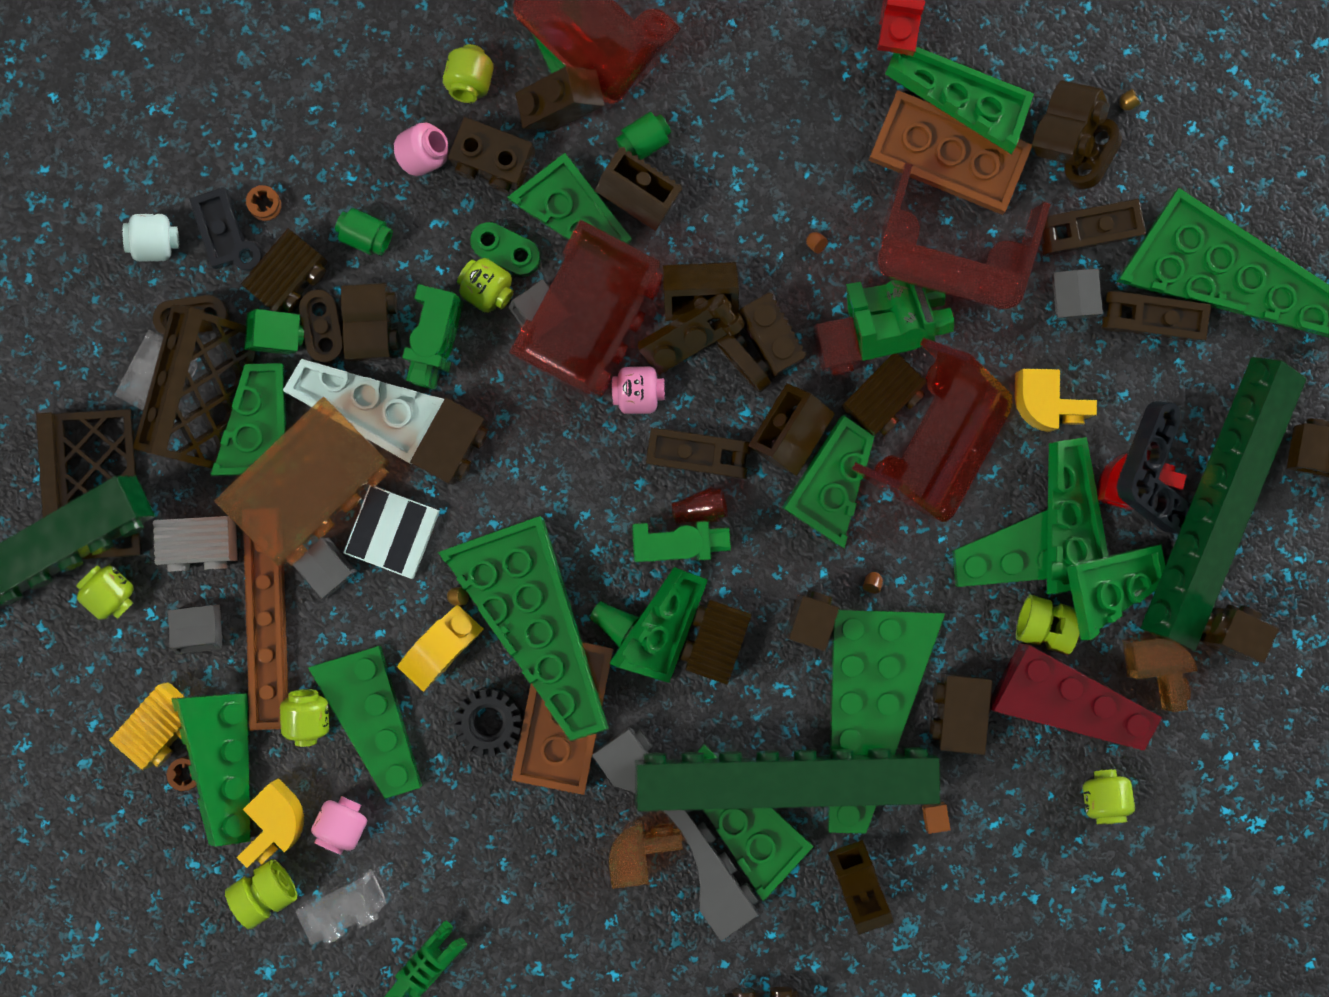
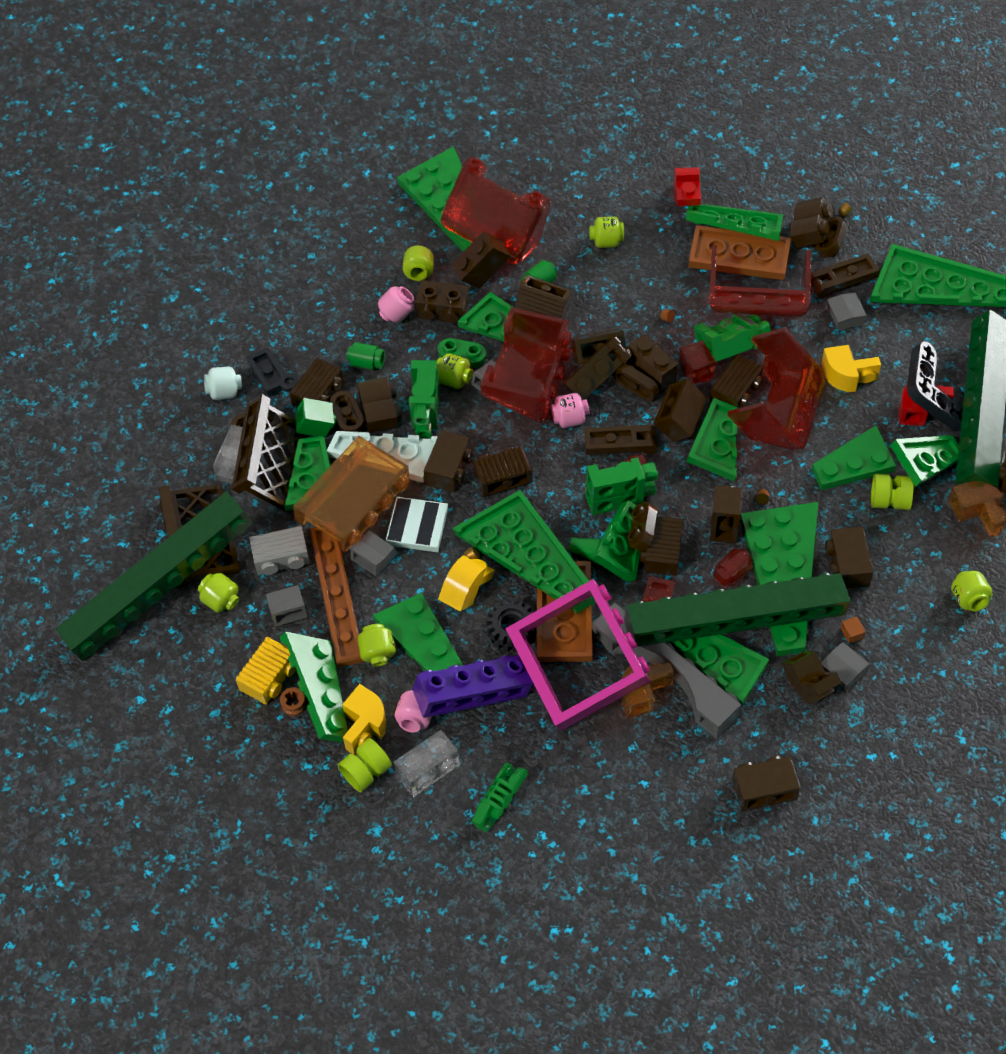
camera: 10 degrees left, 30 degrees down
(257, 192) = (298, 361): dark orange bush -> none
(415, 817) = (471, 685): none -> dark purple brick
(507, 829) = (561, 718): none -> dark pink window
(523, 473) = (502, 470): none -> dark brown brick
(692, 716) = (657, 589): none -> clear red plate
(693, 619) = (642, 526): none -> dark brown plate
(761, 72) = (607, 232): none -> lime head
(802, 694) = (732, 567): none -> clear red brick
(908, 872) = (847, 665): none -> dark grey piece
(1061, 697) = (925, 535): dark red wedge -> none
(1073, 512) = (883, 423): green wing -> none
(1157, 316) = (902, 313): dark brown plate -> none

